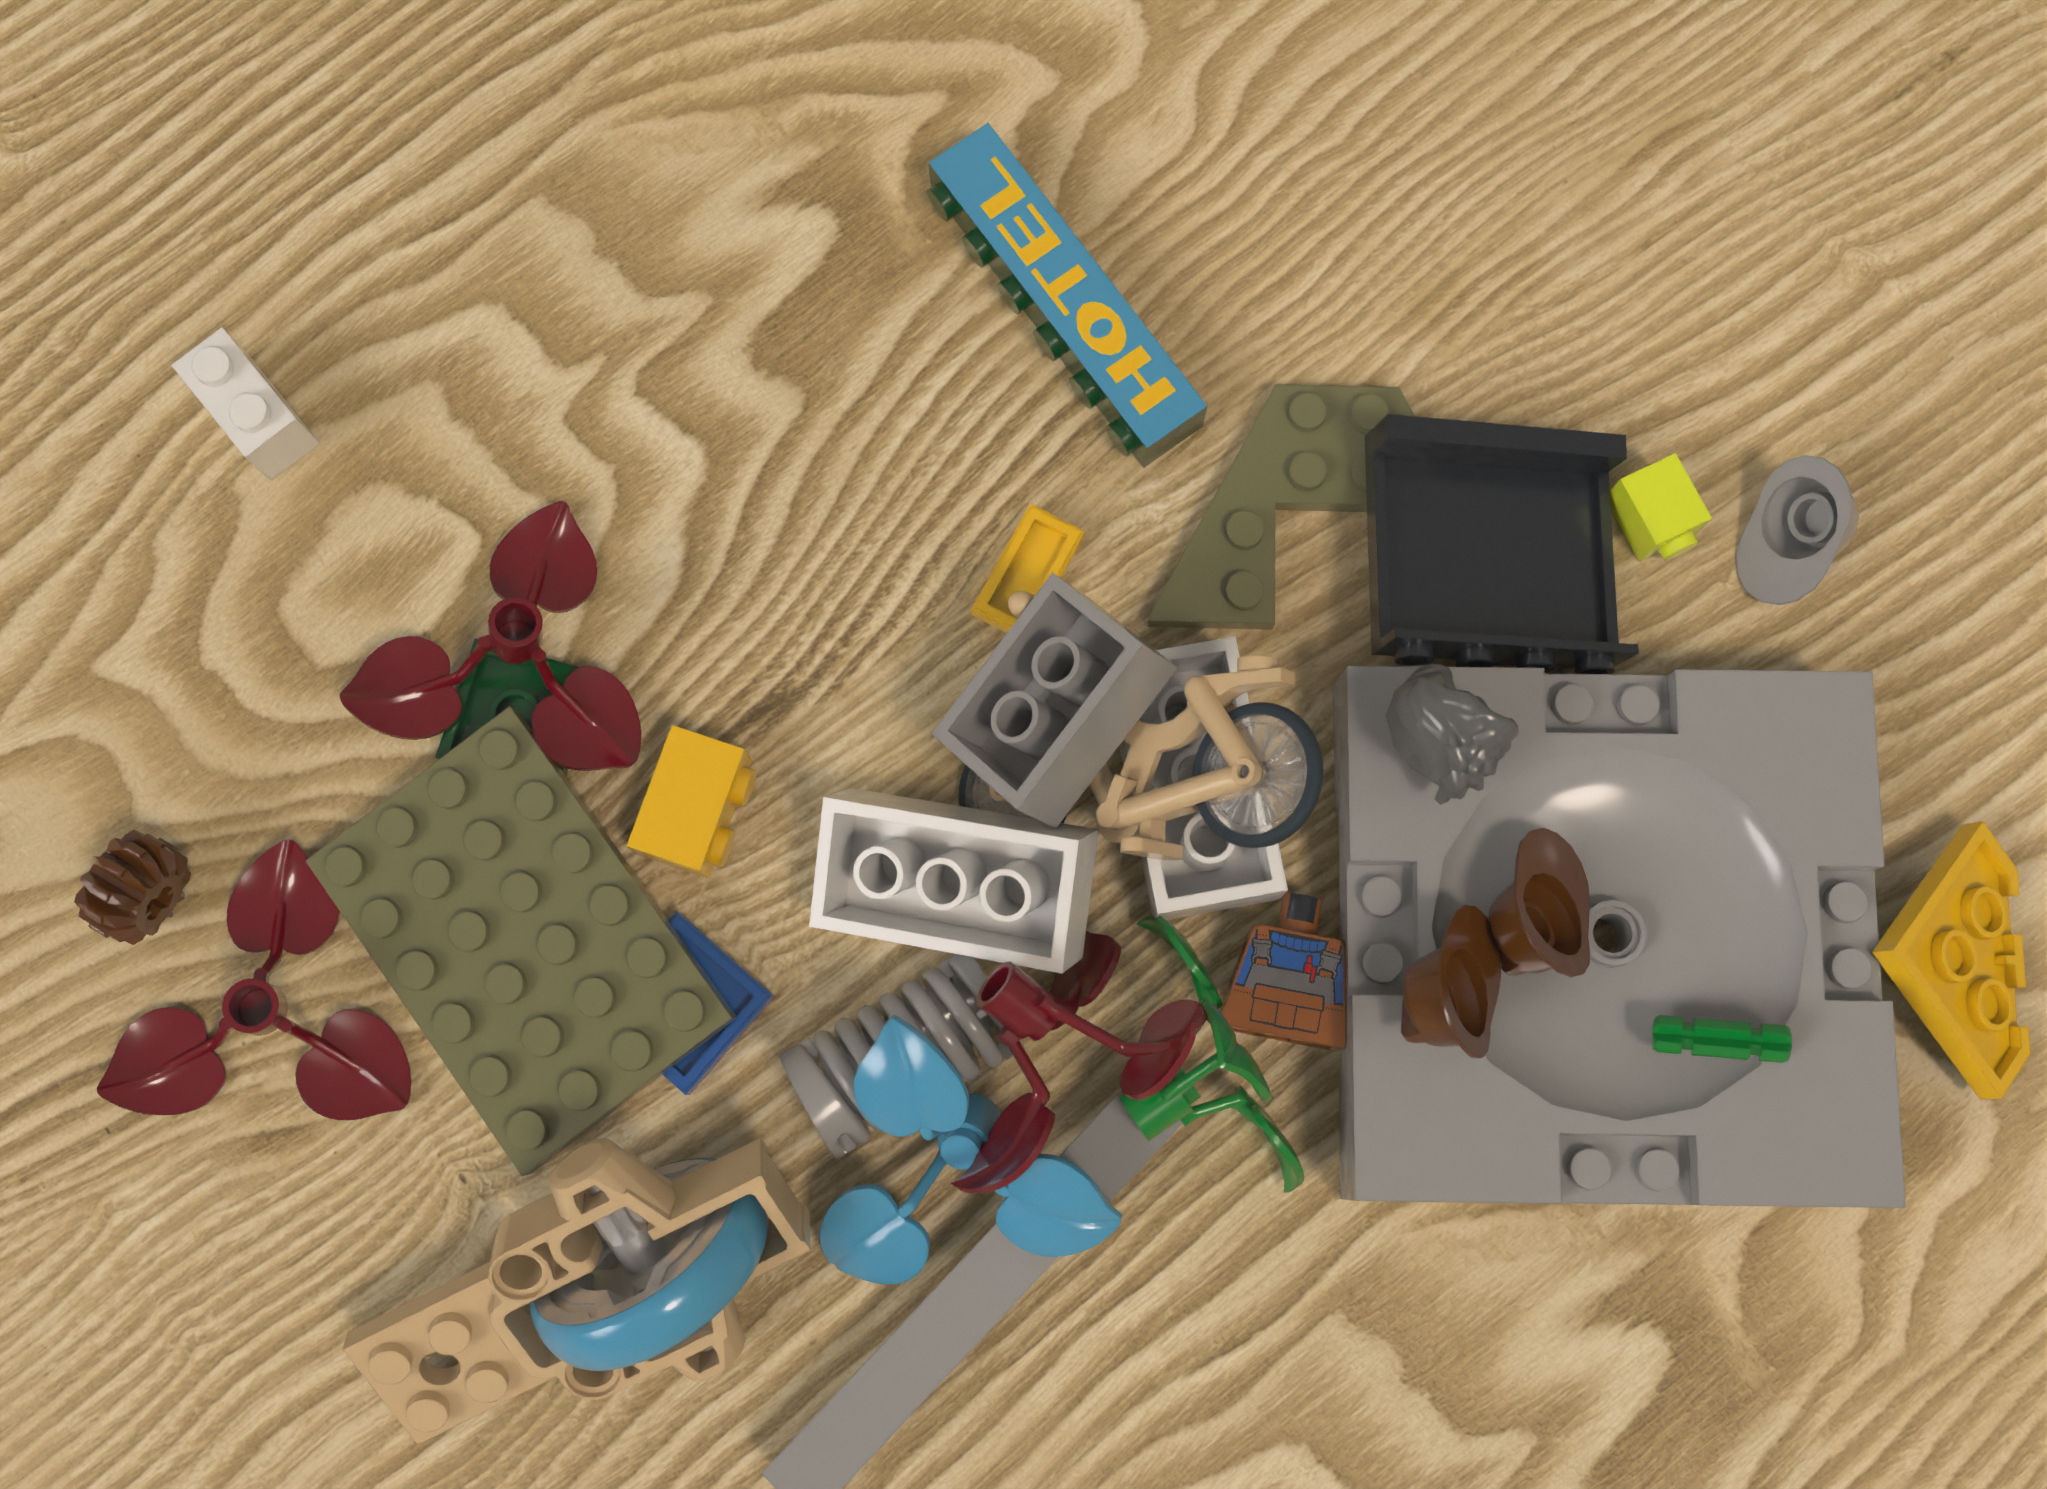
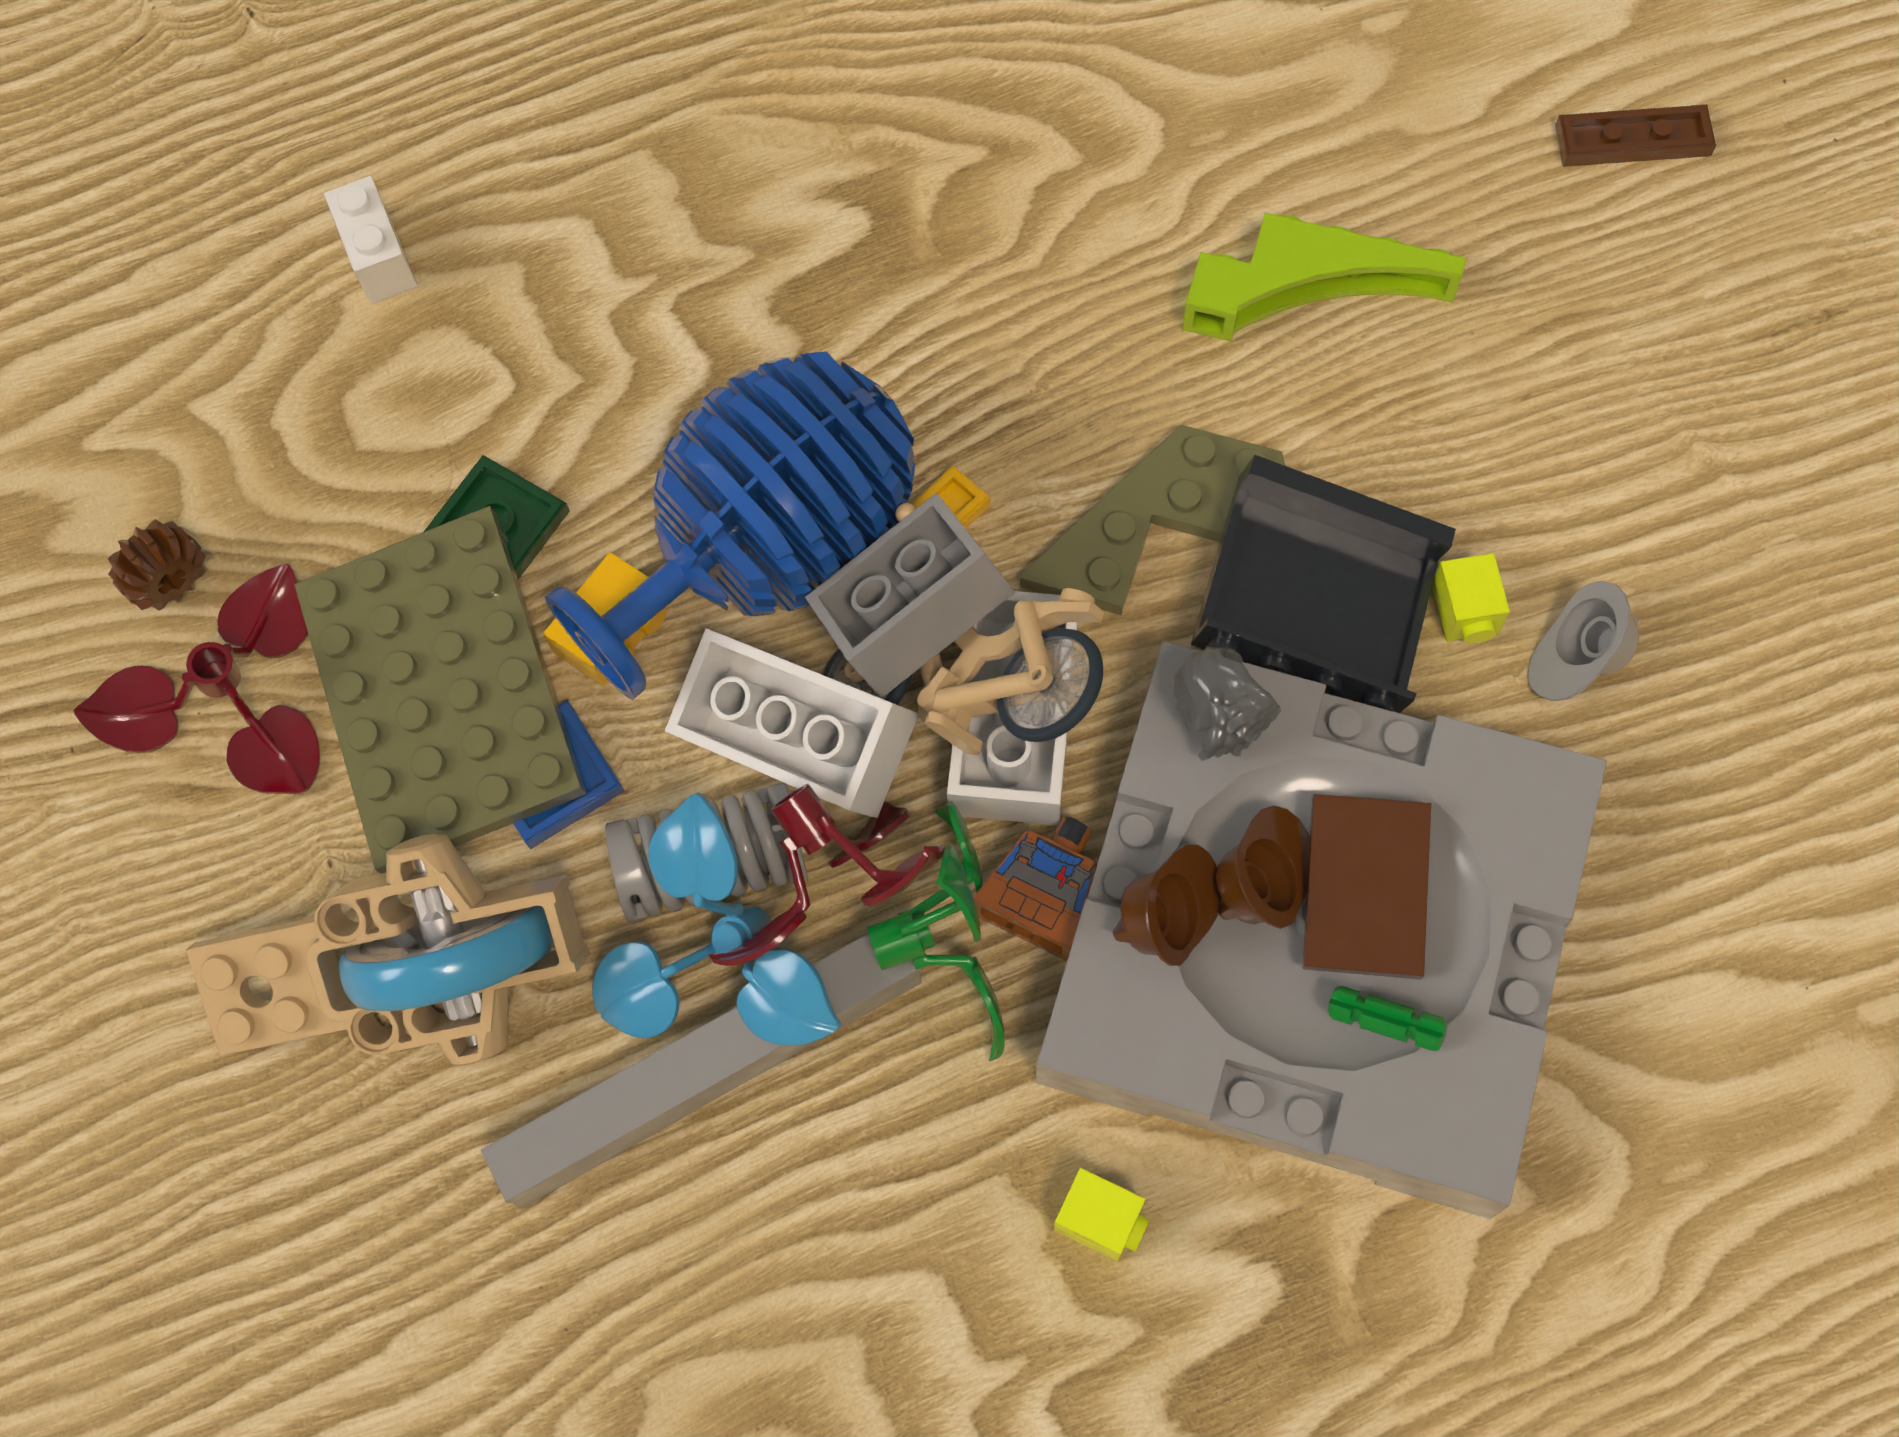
camera: 20 degrees right, 10 degrees down
(581, 727) = (544, 538): dark red plant -> none
(848, 620) = (760, 500): none -> blue plant
(1065, 296) = (1032, 319): brick -> none
(1360, 146) = (1307, 264): none -> lime arch
(1462, 1334) = (1102, 1215): none -> neon yellow brick
(1656, 893) = (1367, 886): none -> reddish brown tile
(1960, 961) = (1631, 1030): yellow plate -> none

